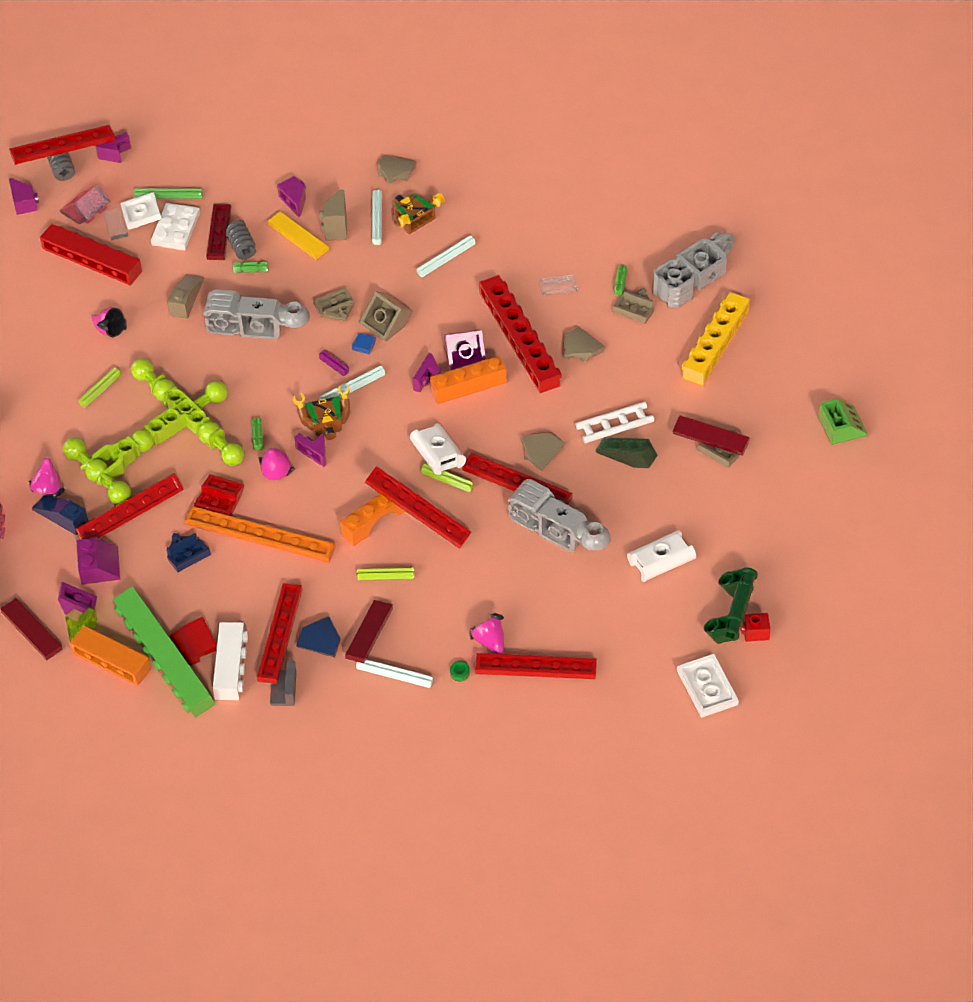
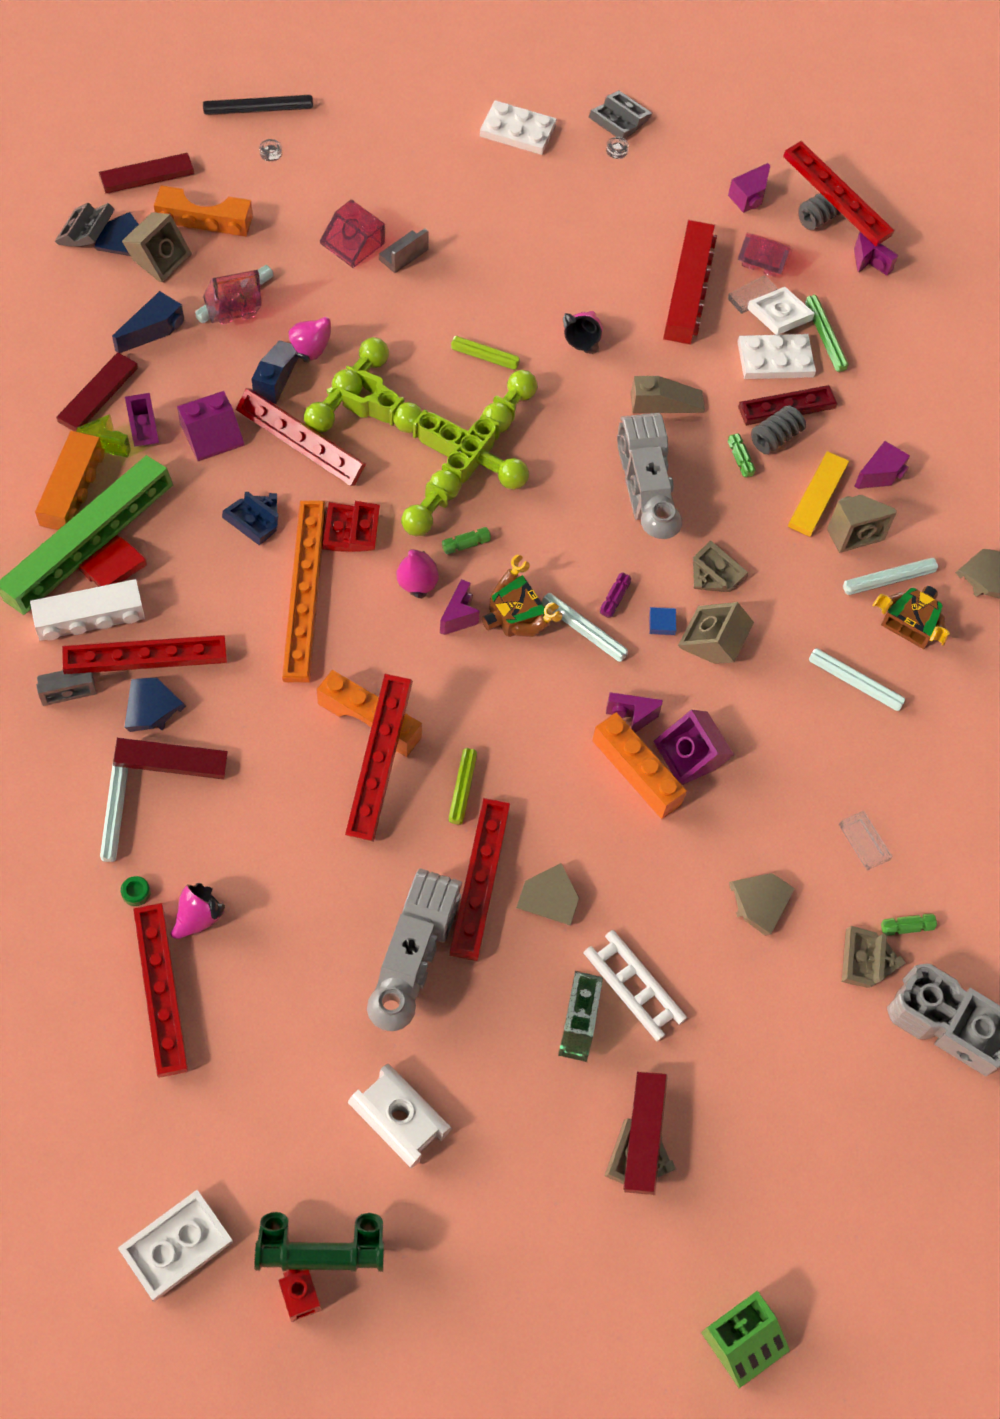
camera: 65 degrees right, 10 degrees up
(385, 573) = (277, 754): lime axle -> none
(437, 448) = (489, 771): white piece -> none
(520, 334) = (813, 749): red brick -> none
(715, 339) = (923, 1100): yellow brick -> none

